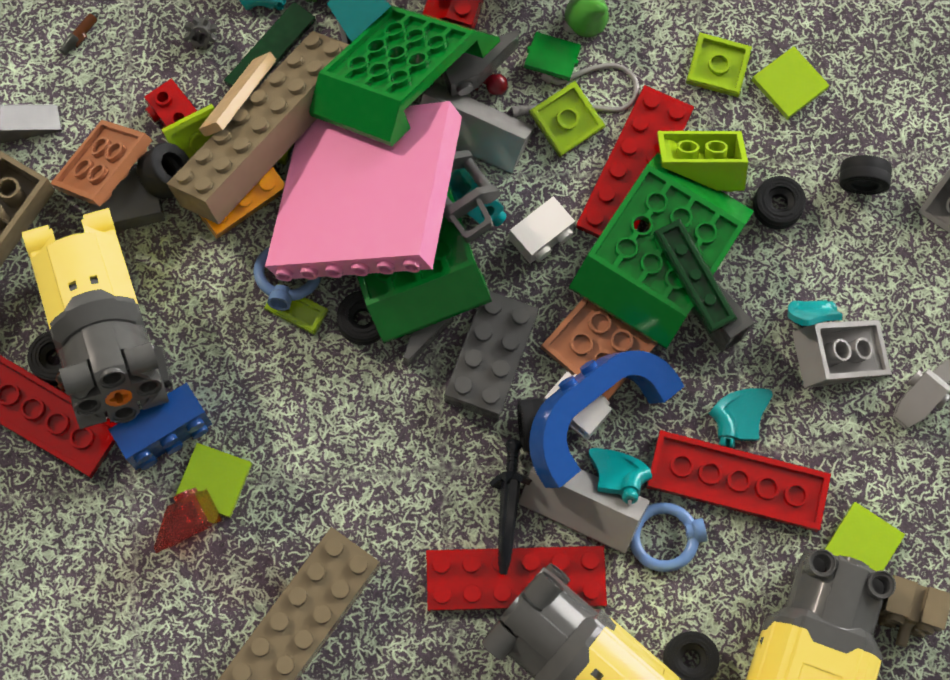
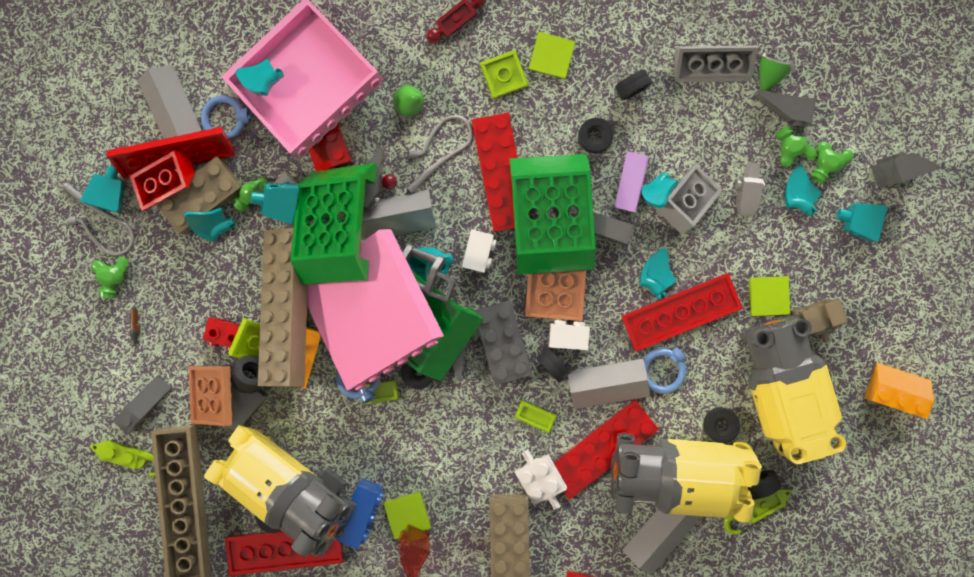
camera: 30 degrees left, 15 degrees up
(197, 38) = (201, 276): dark grey gear -> none
(237, 94) = (253, 302): tan tile -> none
(277, 40) = (247, 255): dark green tile -> none
(411, 556) = (540, 479): none -> white plate
(463, 476) = (535, 416): none -> lime tile
(509, 495) = (564, 404): black sword -> none
(551, 423) = (569, 333): blue arch -> none
(552, 56) = (407, 140): green piece -> none
(567, 119) = (443, 173): lime tile -> none
(619, 473) = (617, 356): teal arm -> none
(695, 276) = (584, 223): dark green tile -> none
(706, 157) = (538, 143): lime slope -> none
(784, 284) = (631, 182): none -> lavender slope

